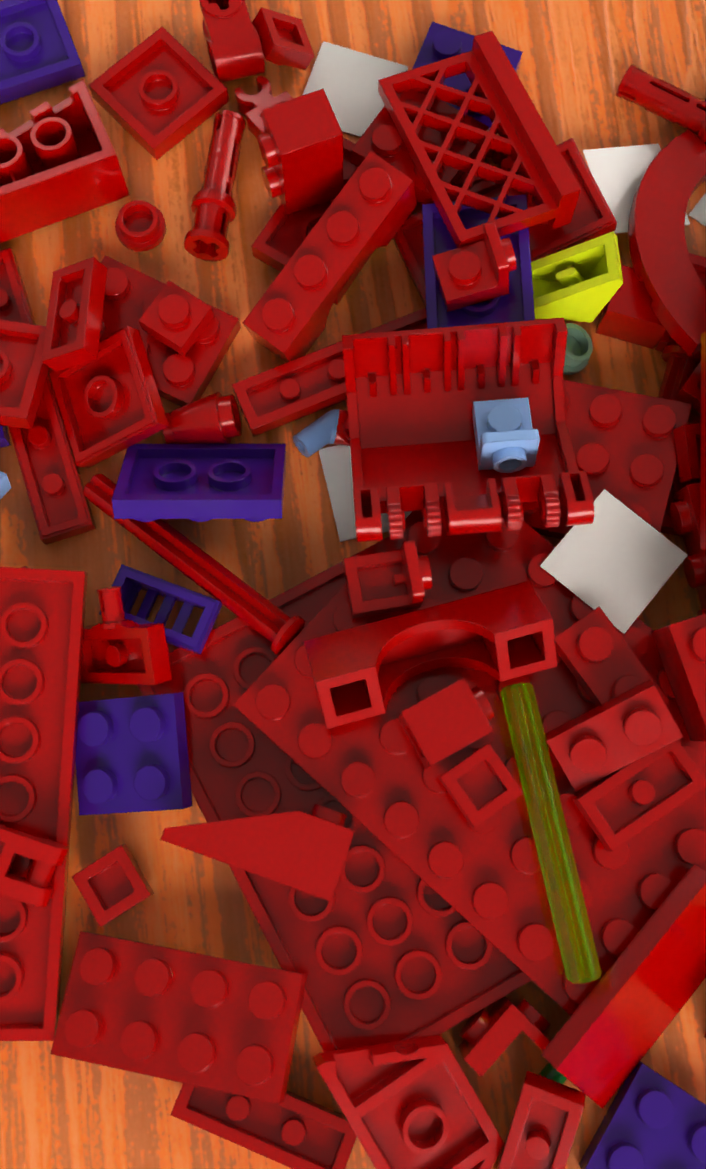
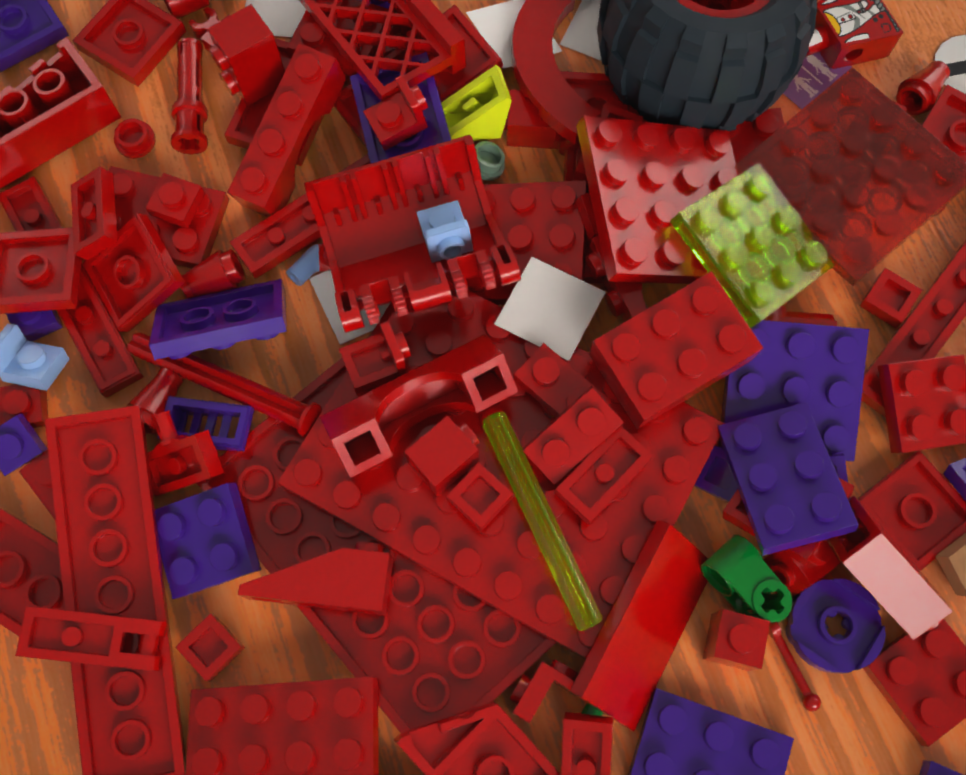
camera: 10 degrees left, 5 degrees down
(105, 560) = (155, 396): none -> red cone

